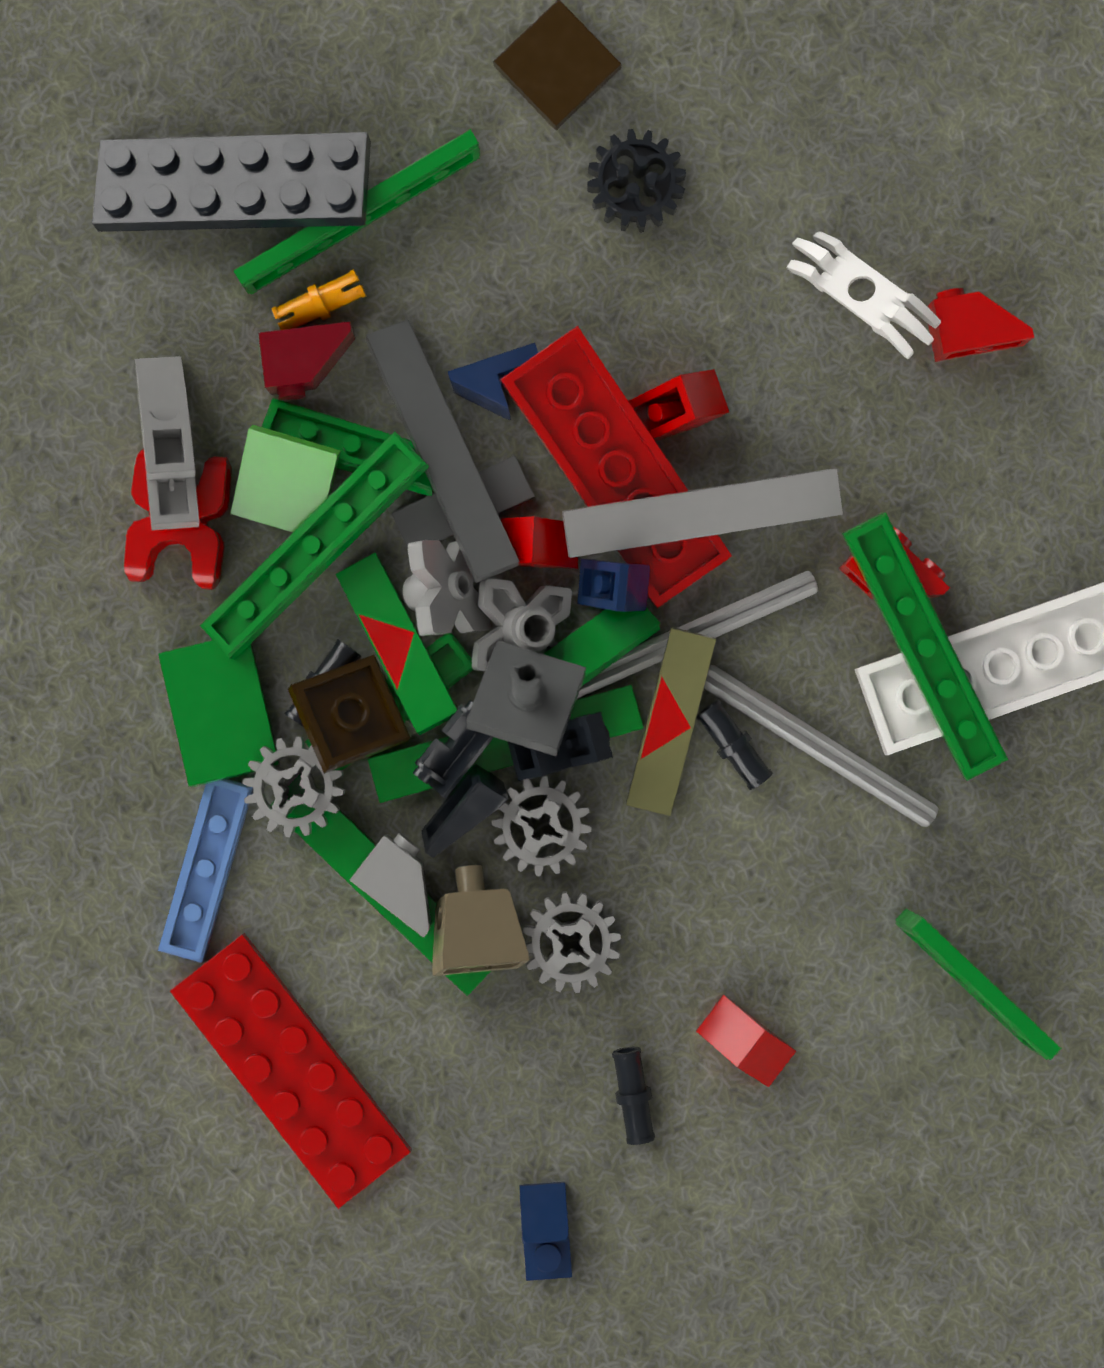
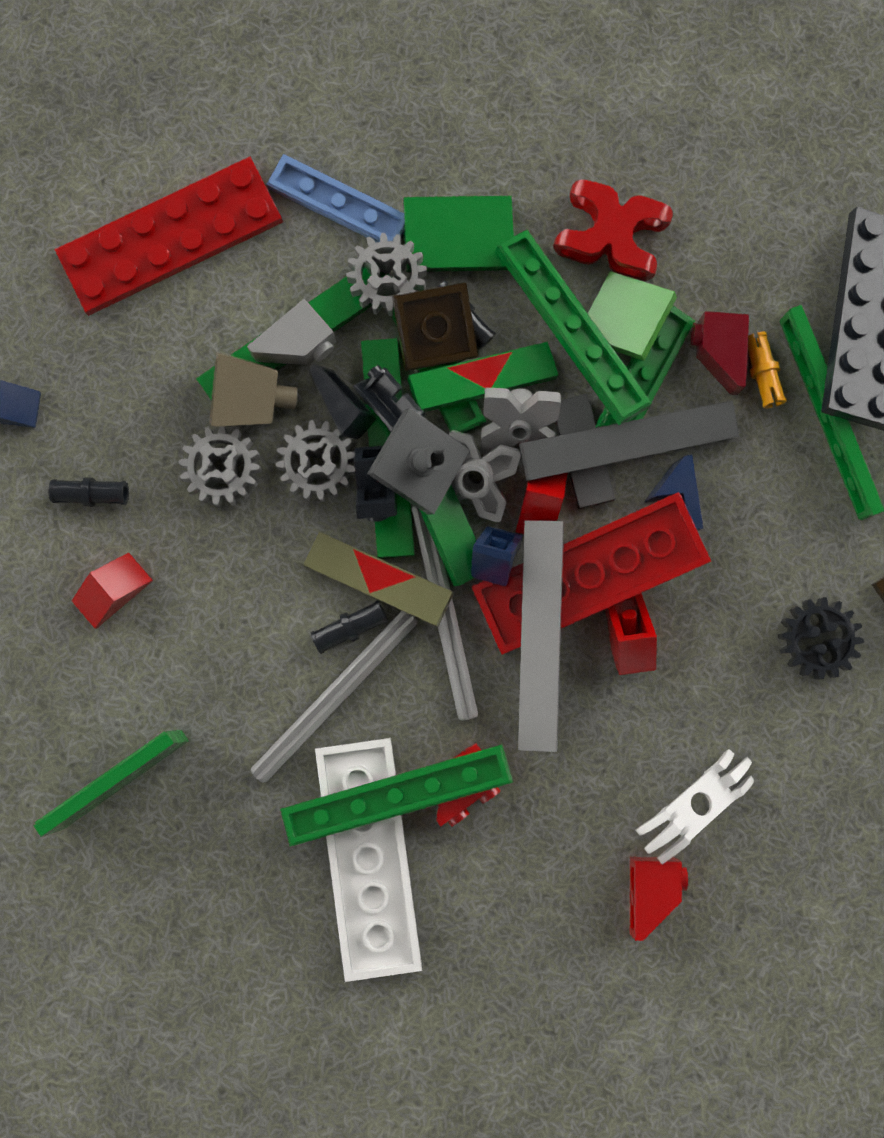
camera: 100 degrees right, 5 degrees down
(167, 443) = (674, 227): light grey slope -> none

